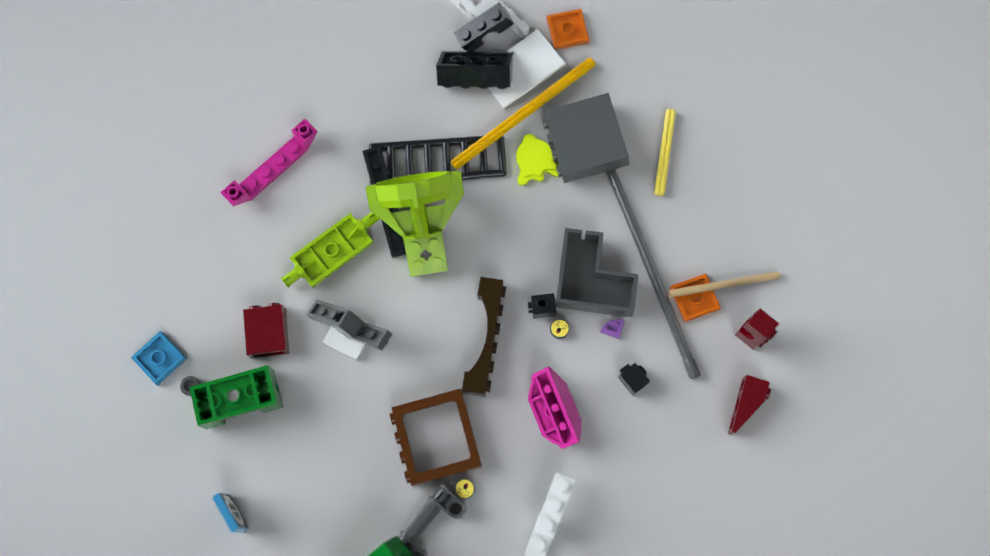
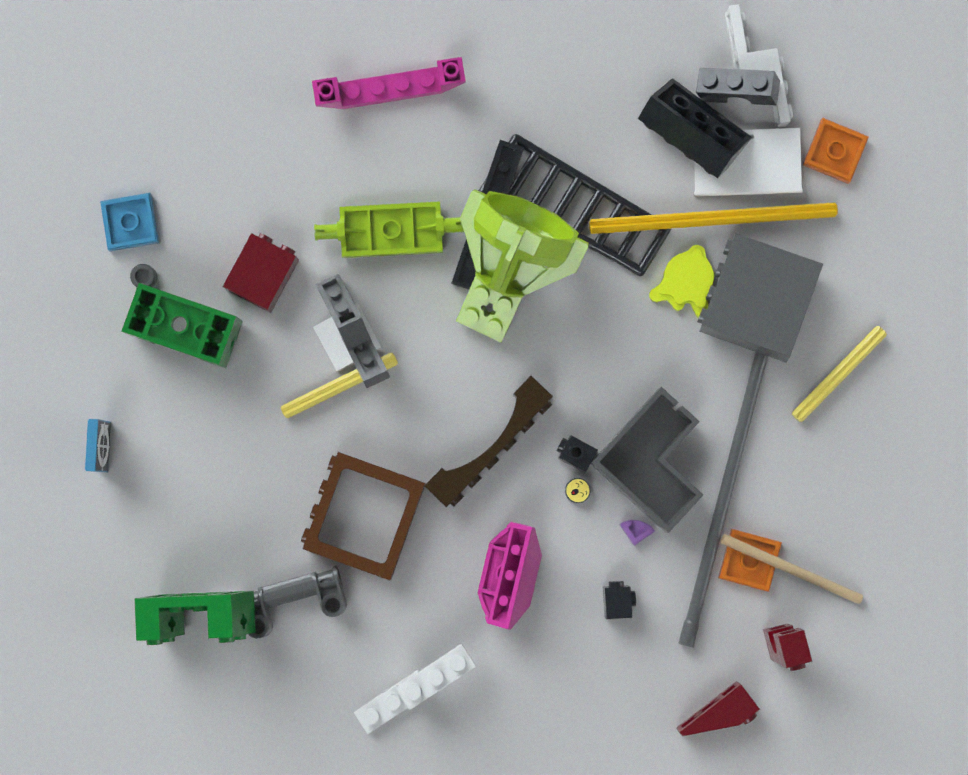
camera: 30 degrees right, 10 degrees up
(358, 376) = (330, 389): none -> light yellow axle
(464, 488) = (357, 589): light yellow tile -> none

